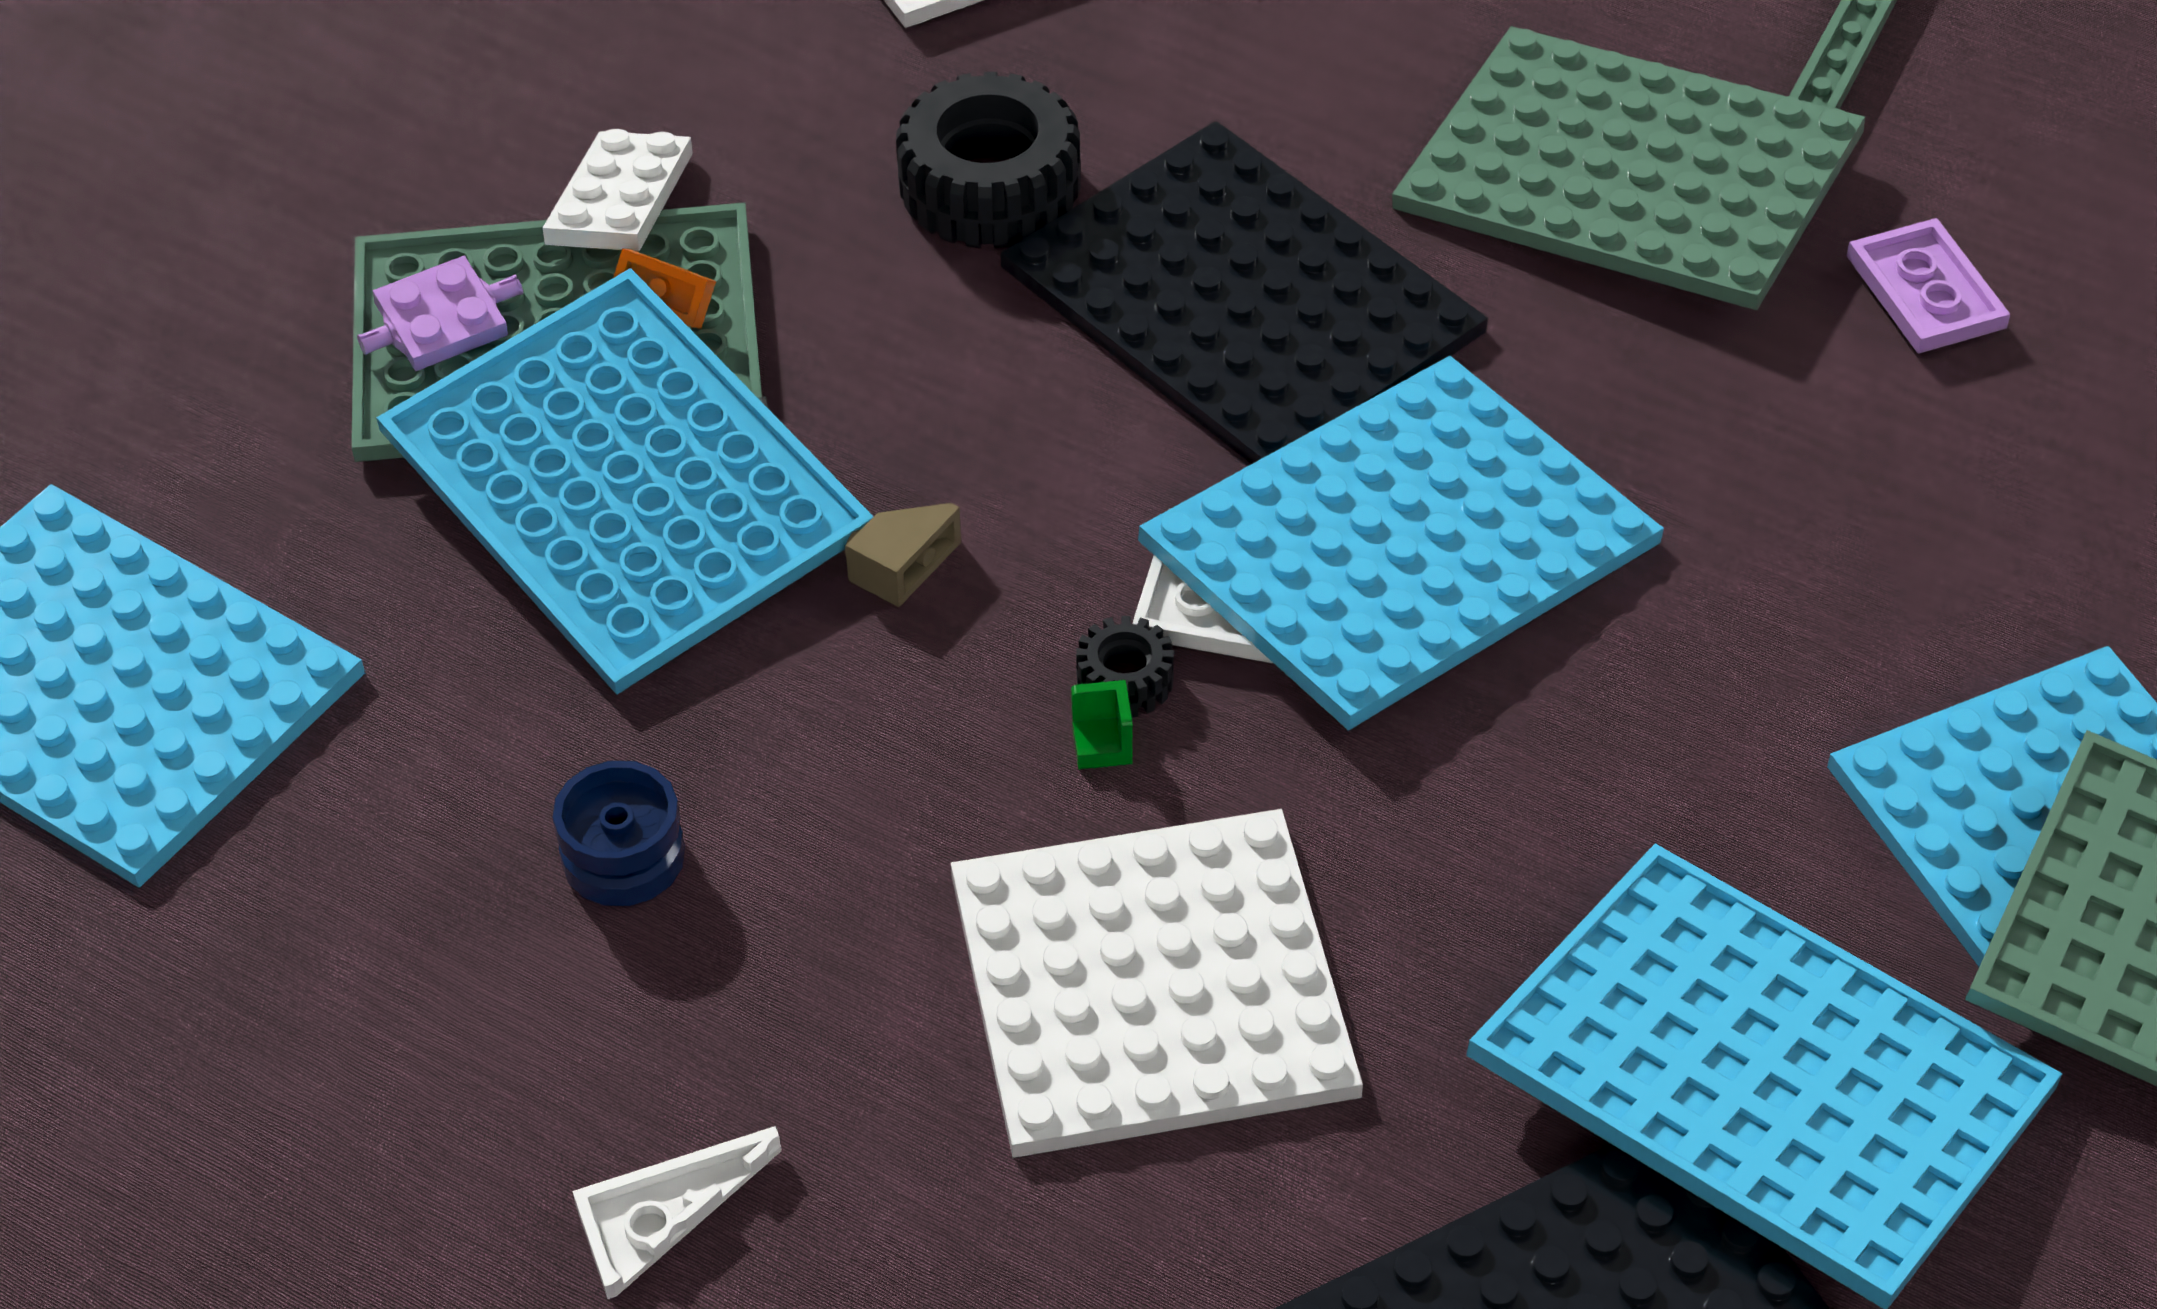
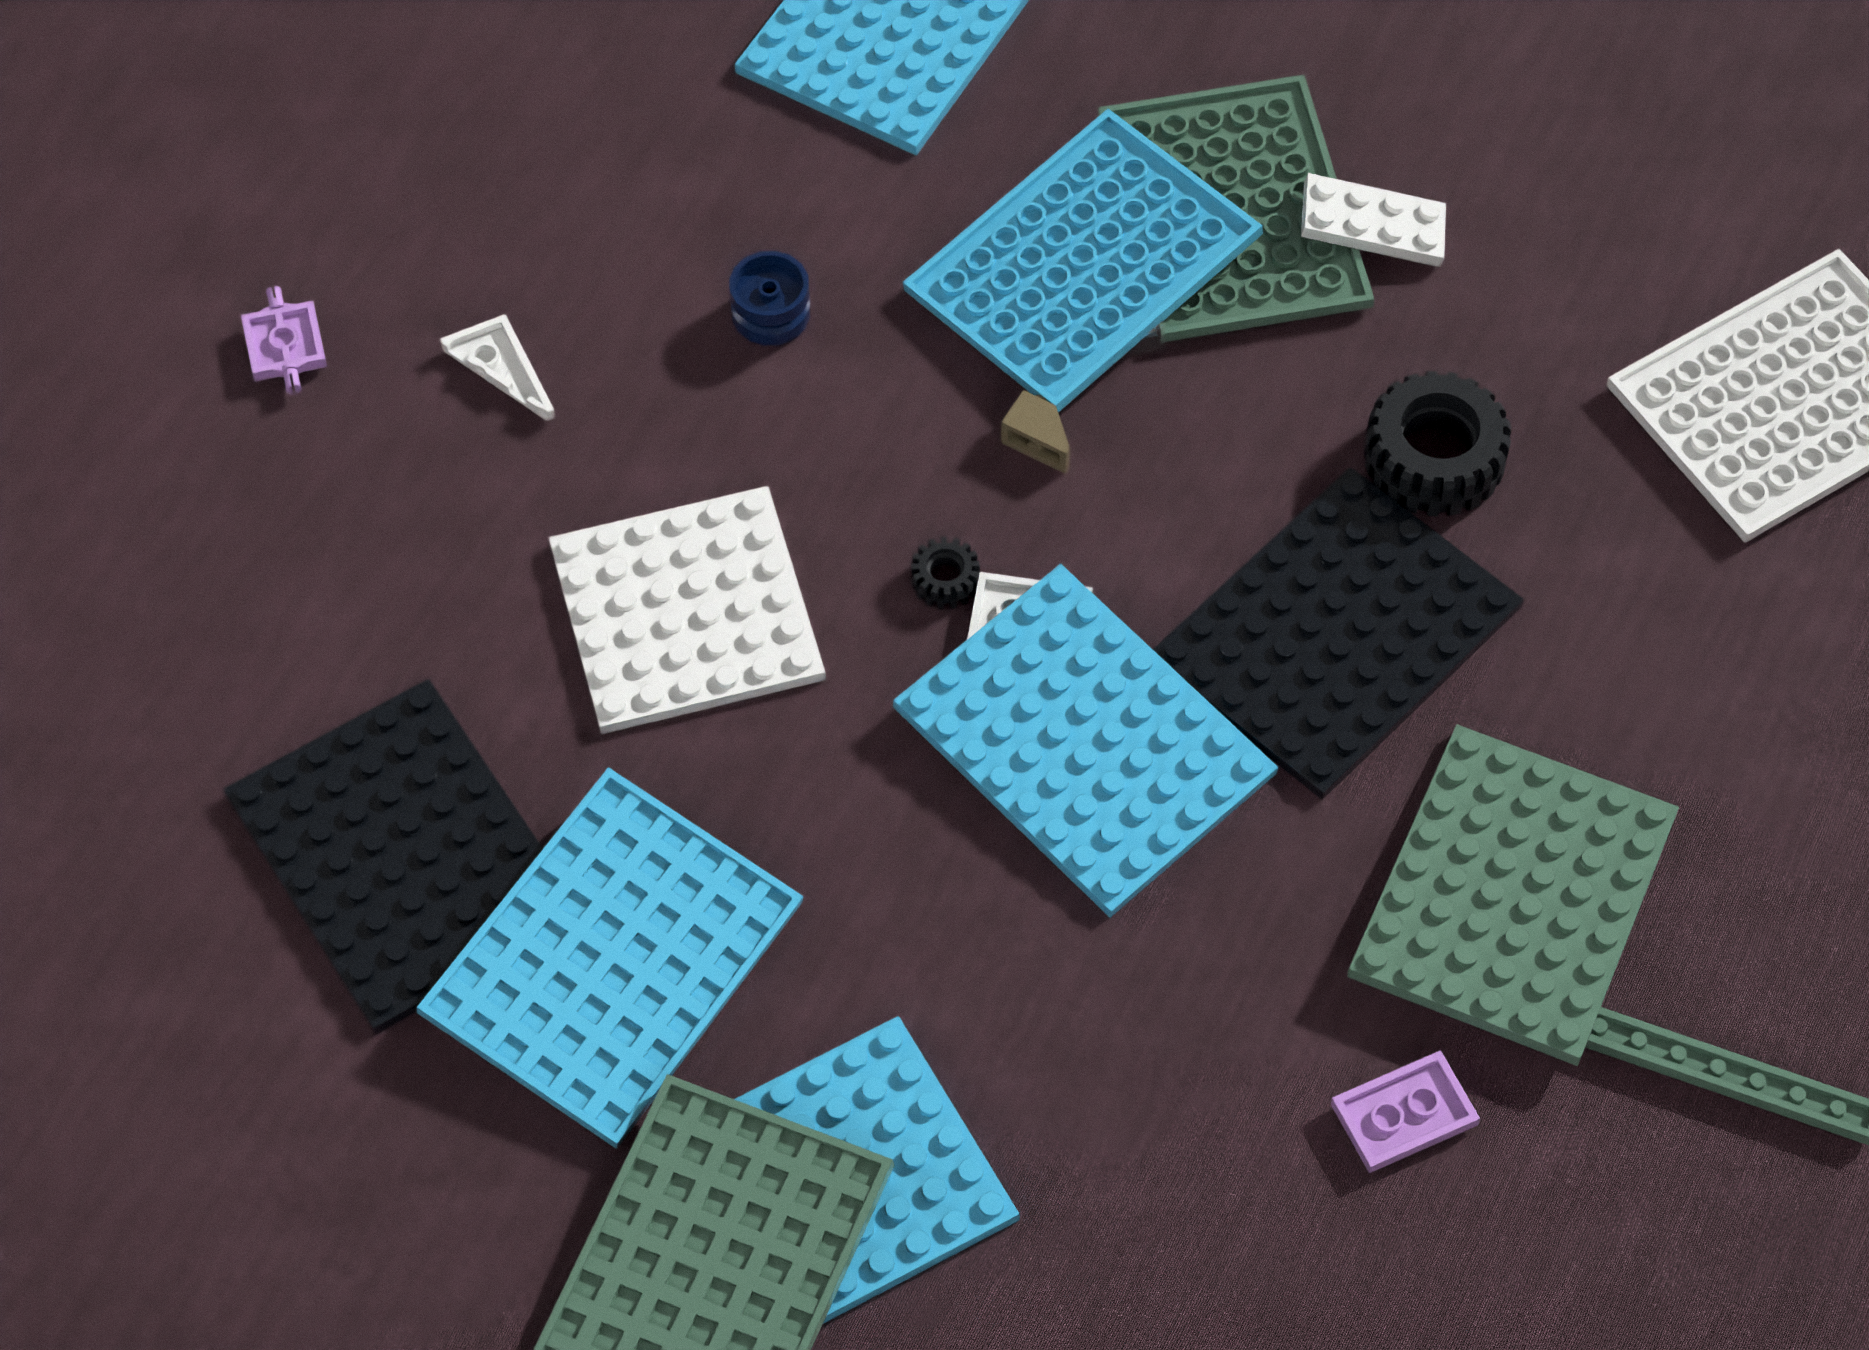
camera: 85 degrees right, 10 degrees up
(439, 313) = (1224, 131): lavender plate -> none
(680, 289) = (1257, 259): orange plate -> none
(1102, 724) = (887, 564): green panel -> none

